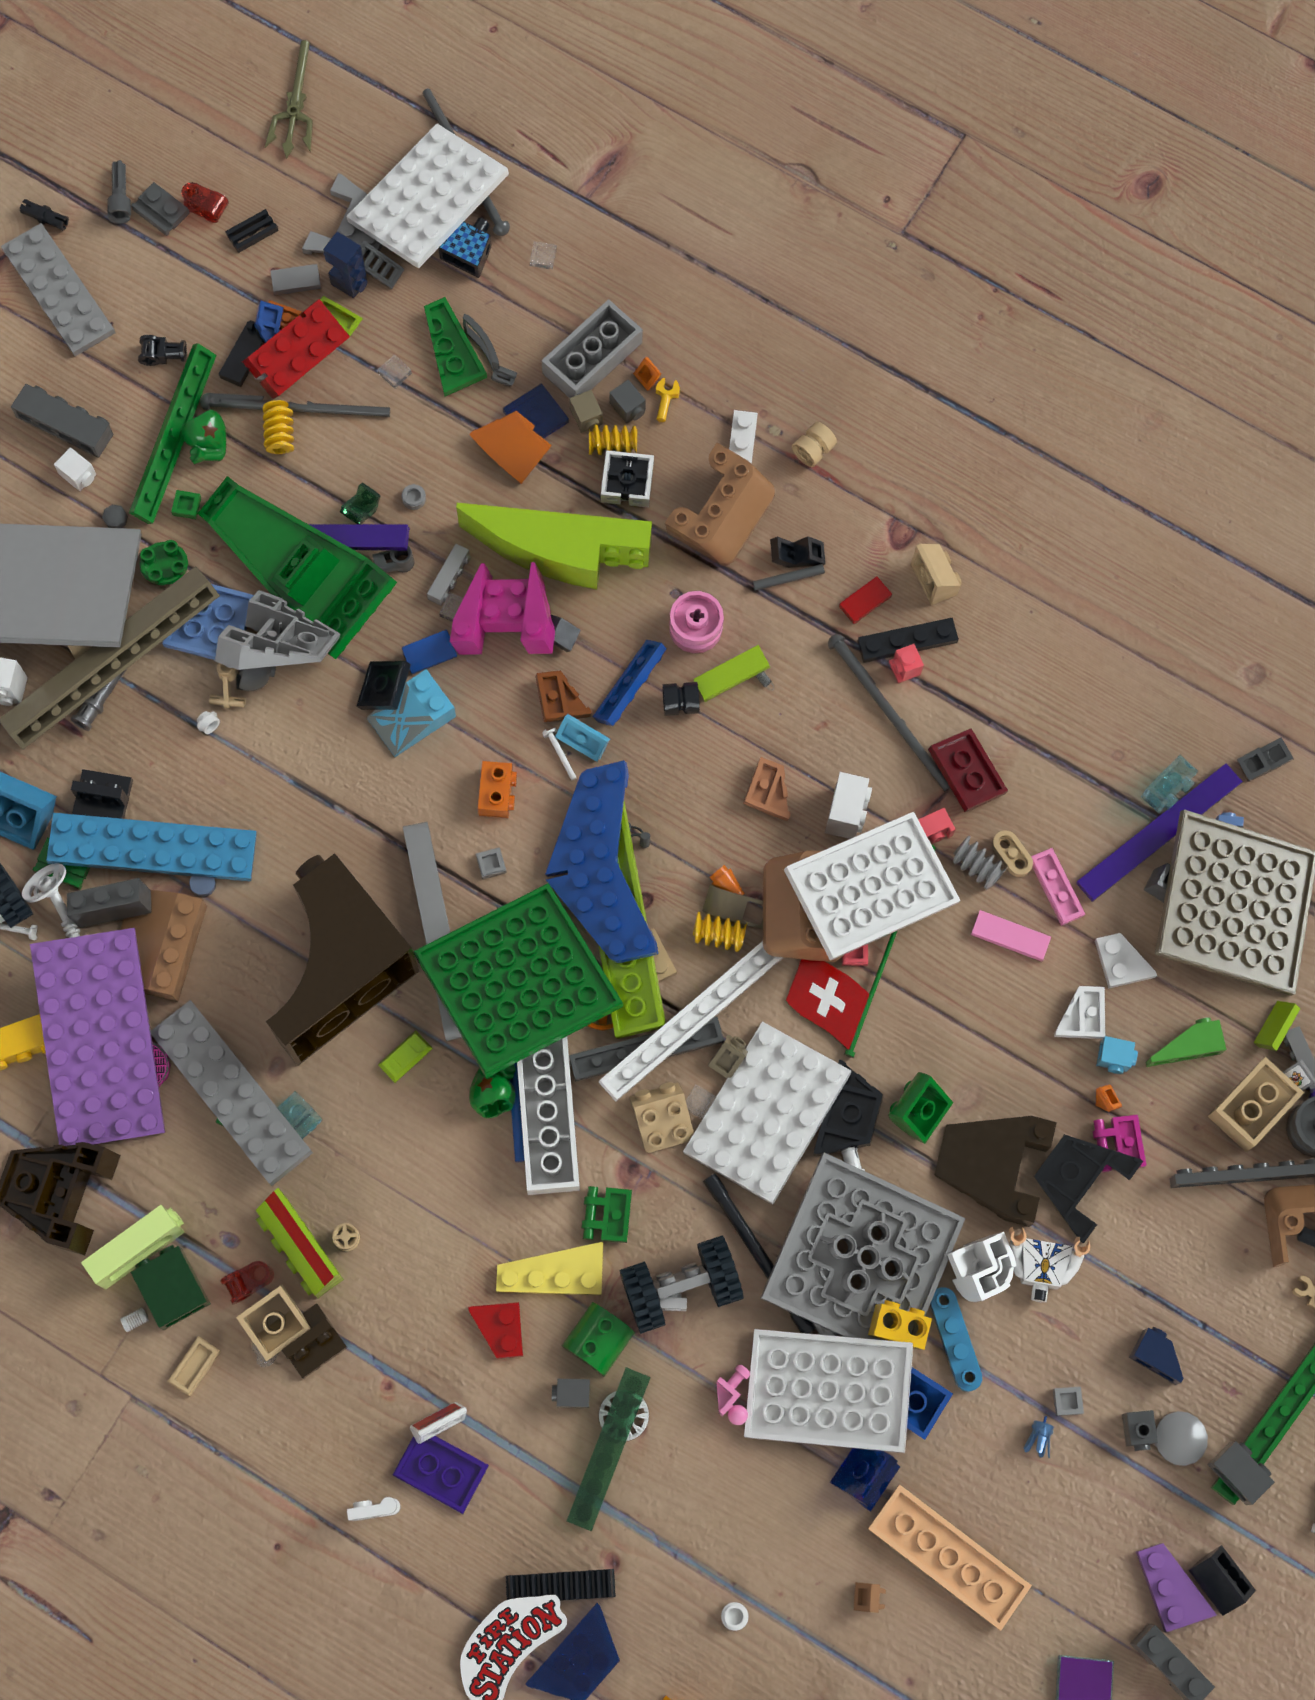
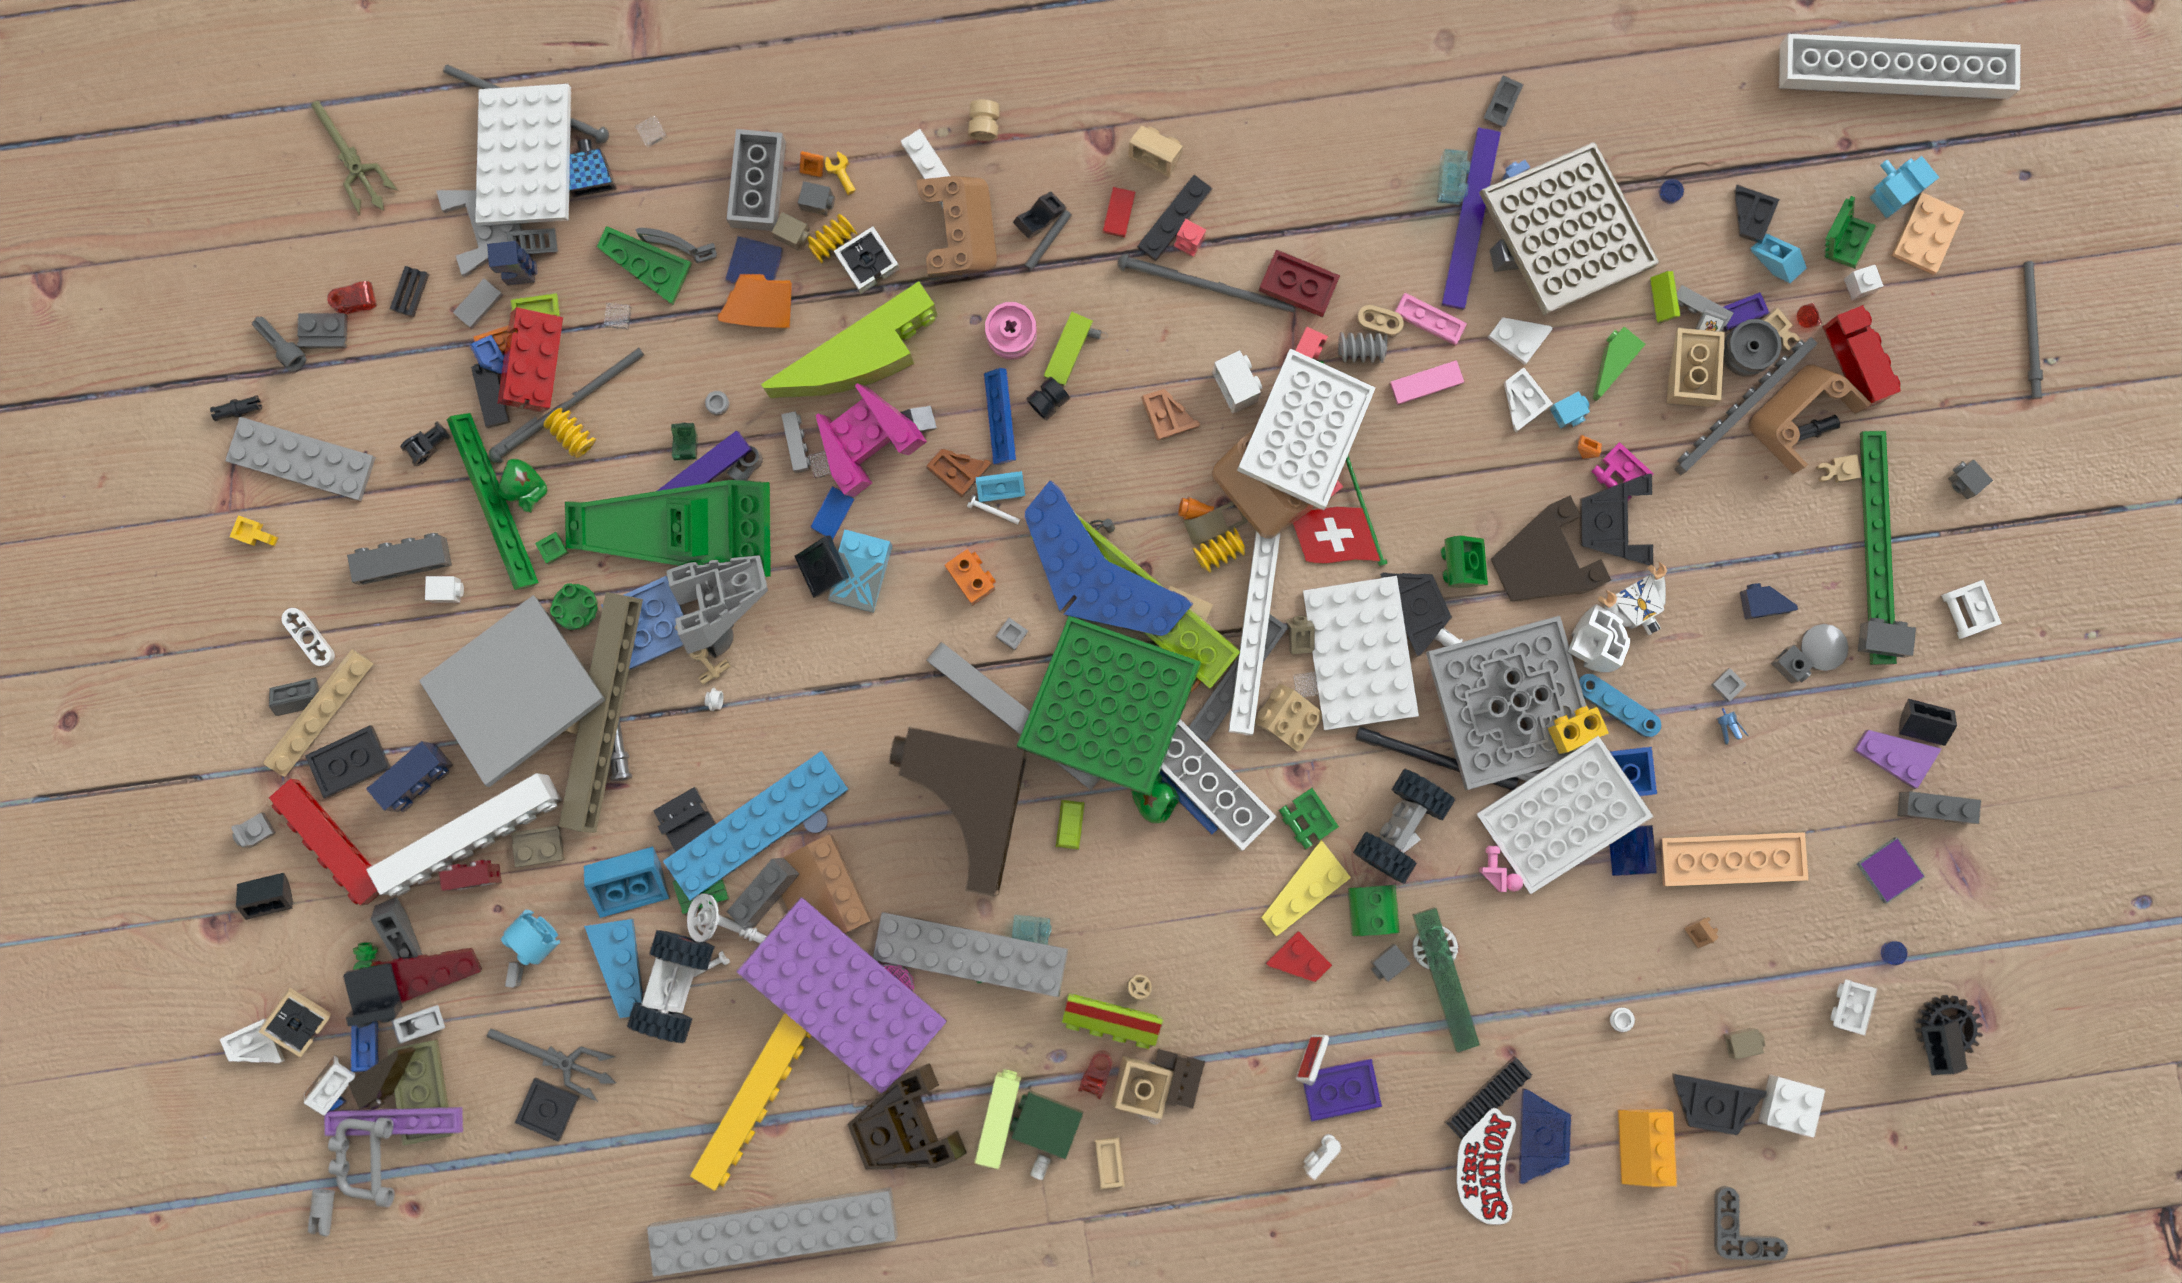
camera: 35 degrees left, 10 degrees up
(114, 516) = (505, 601): dark grey tile -> none

